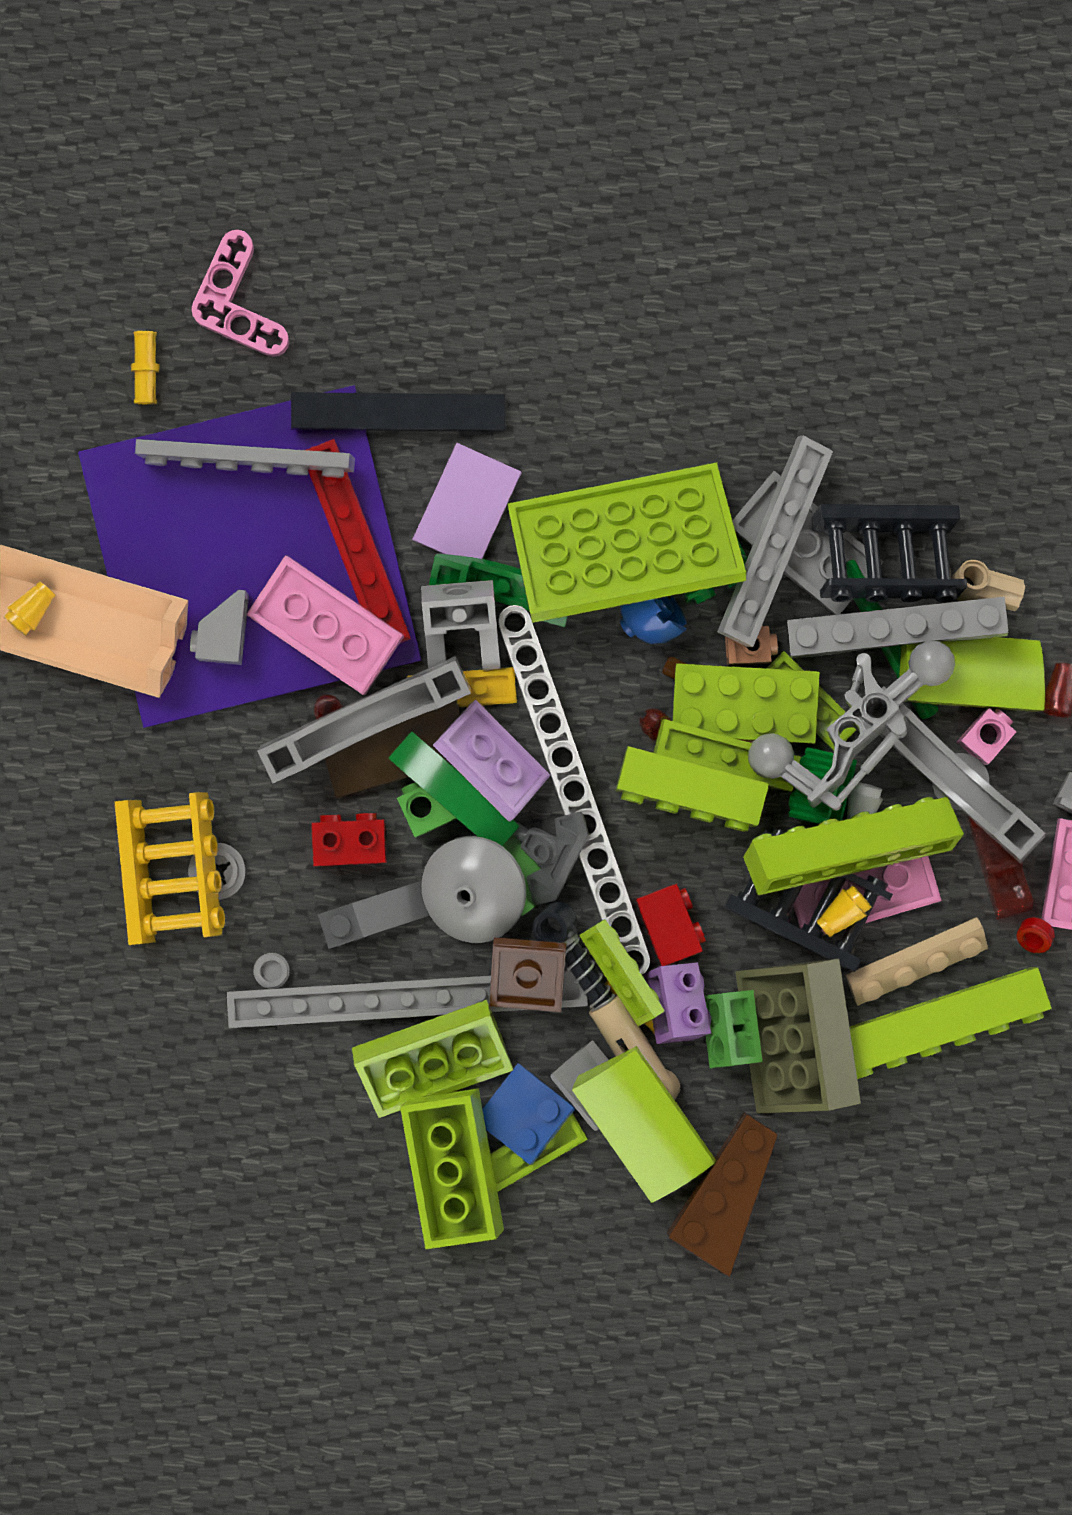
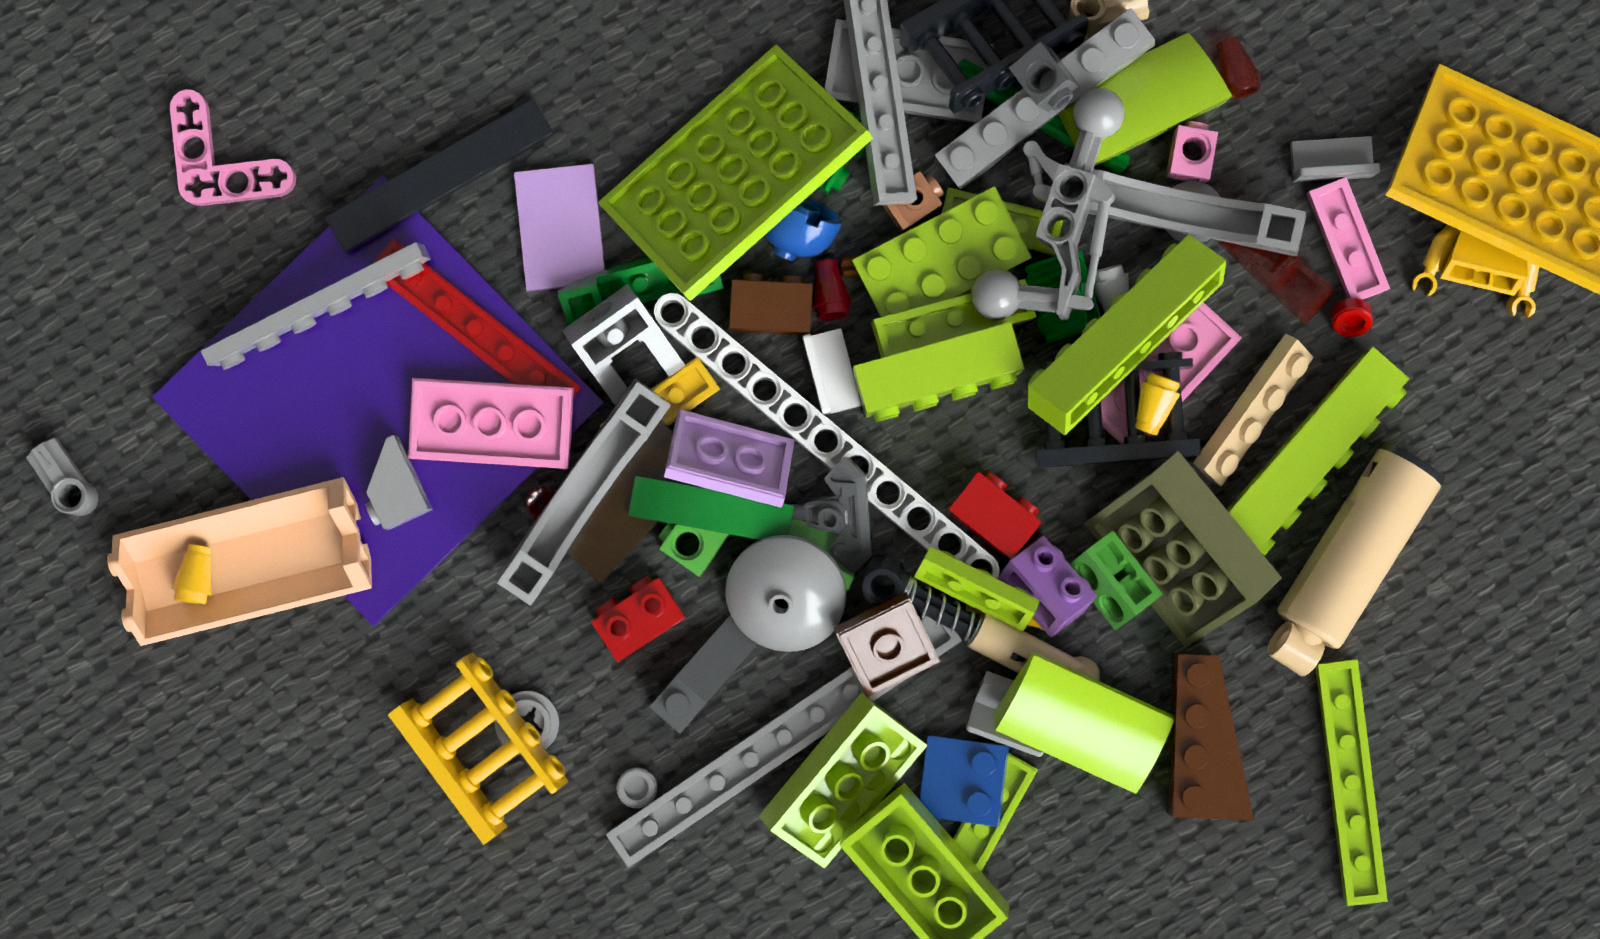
camera: 25 degrees left, 0 degrees up
(145, 367) = (169, 277): yellow pin -> none
(593, 662) = (771, 306): none -> reddish brown brick
(610, 740) = (831, 371): none -> white panel
(644, 679) = (830, 293): none -> dark red cone
(649, 722) = (861, 324): clear red hinge -> none
(822, 1292) = (1351, 782): none -> lime plate
(900, 598) = (1033, 66): none -> dark grey brick
(926, 1120) = (1353, 556): none -> tan piece

